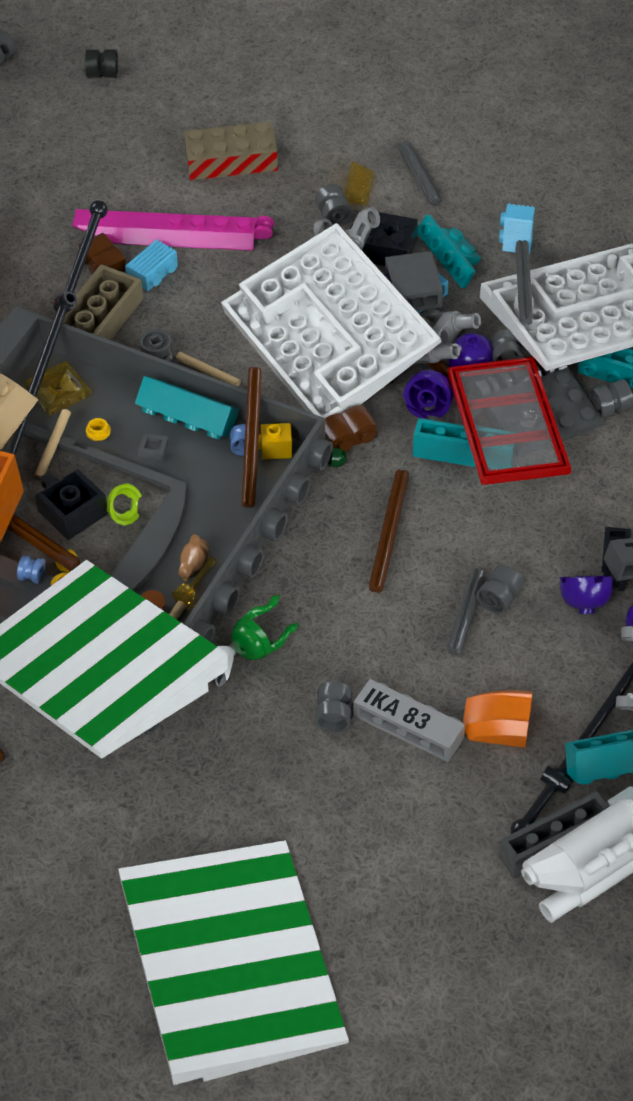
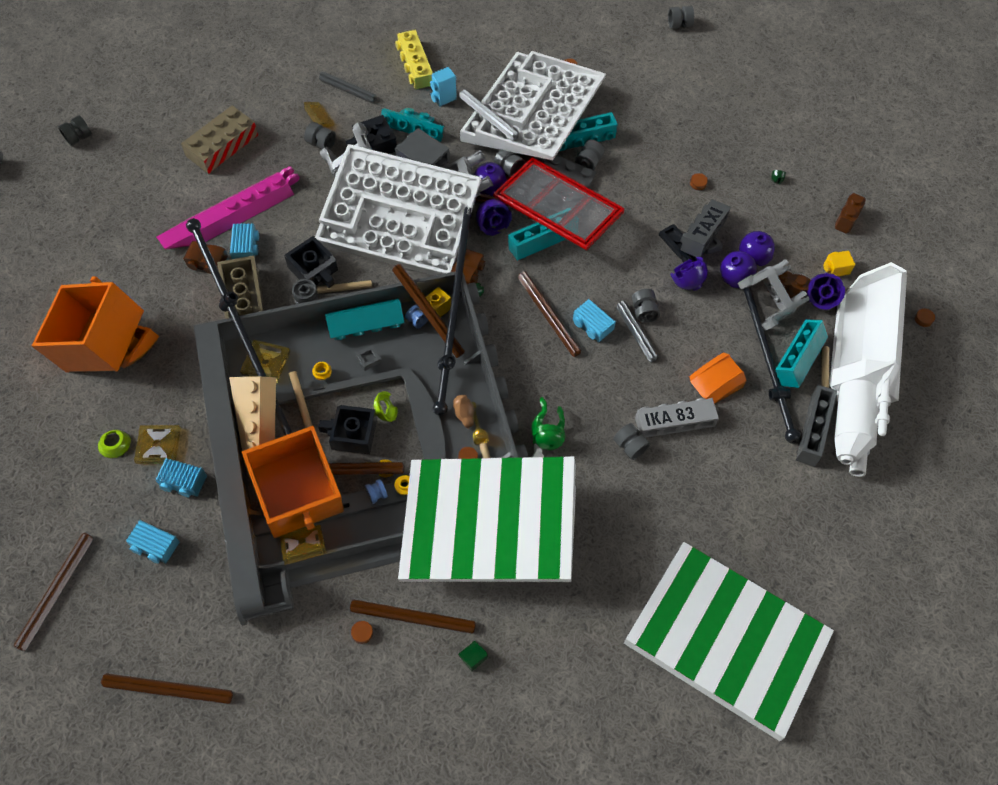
camera: 45 degrees left, 10 degrees up
(173, 539) = (448, 361): none -> black bar
(194, 324) = (312, 262): none -> black hinge
(426, 566) = (593, 320): none -> medium azure brick
(523, 179) = (415, 59): none -> light yellow brick

